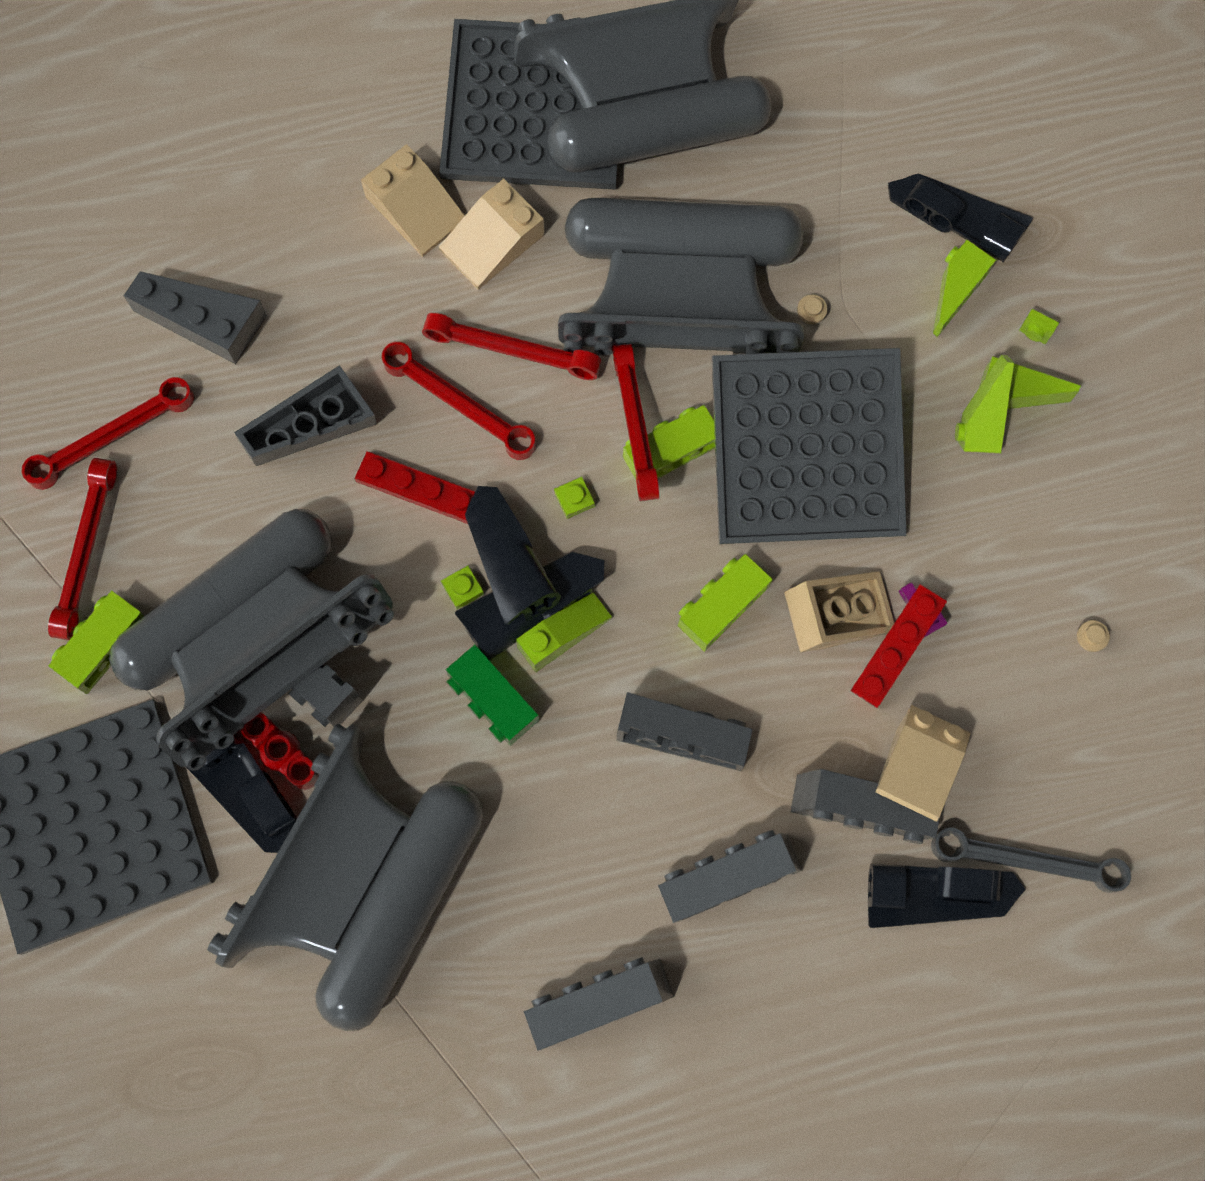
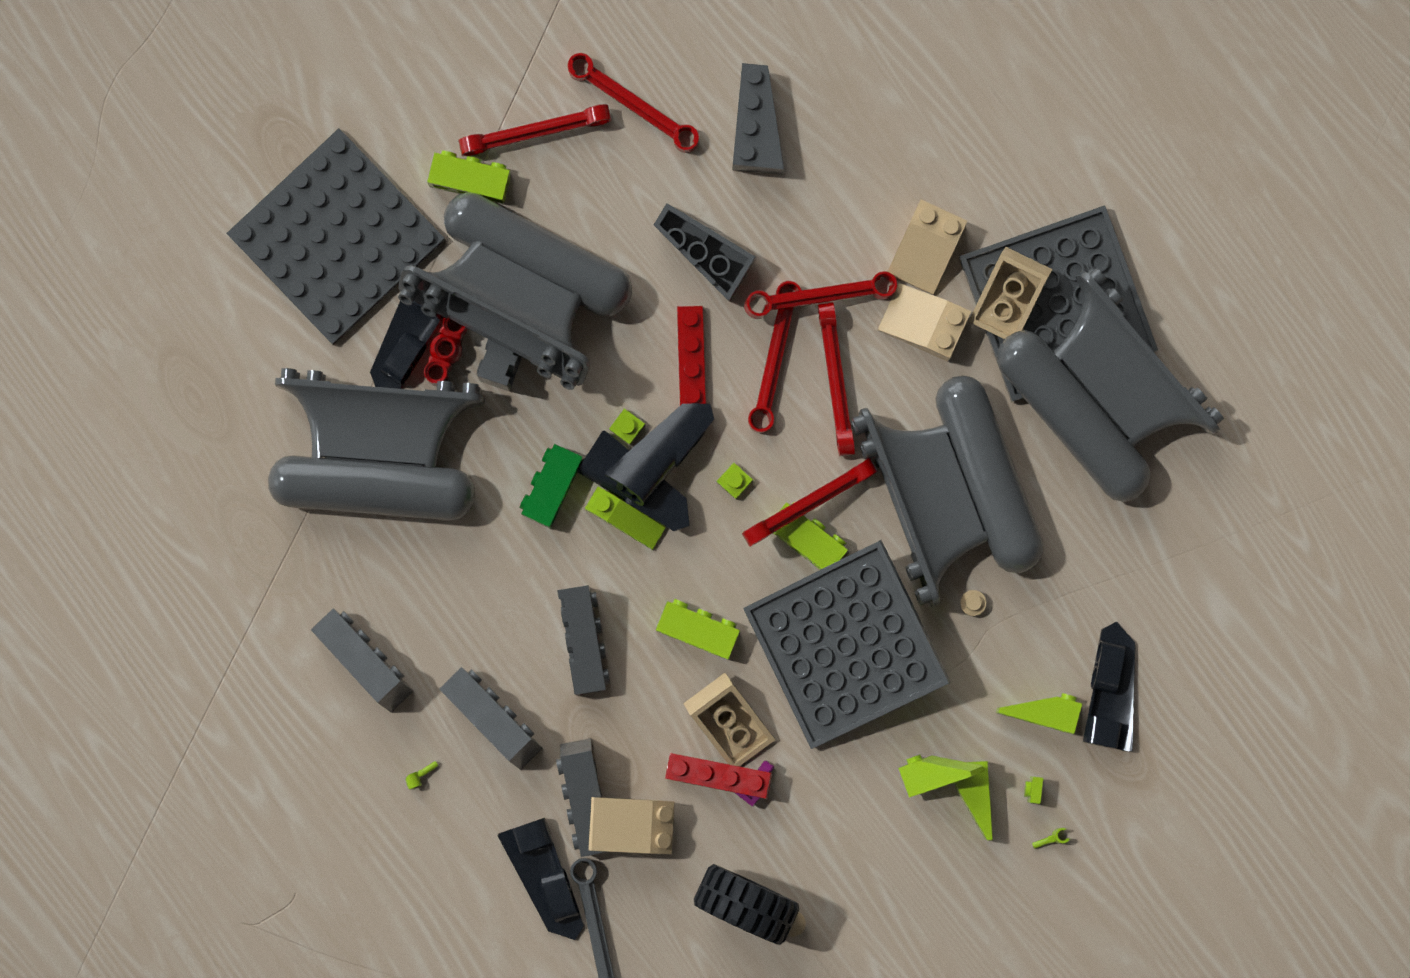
camera: 70 degrees right, 10 degrees up
(413, 324) = (820, 295): none -> red piece
(504, 135) = (1010, 294): none -> tan slope
(765, 1002) = (413, 779): none -> lime hand
(1067, 667) = (746, 904): none -> black tyre
(1094, 330) = (1051, 839): none -> lime hand

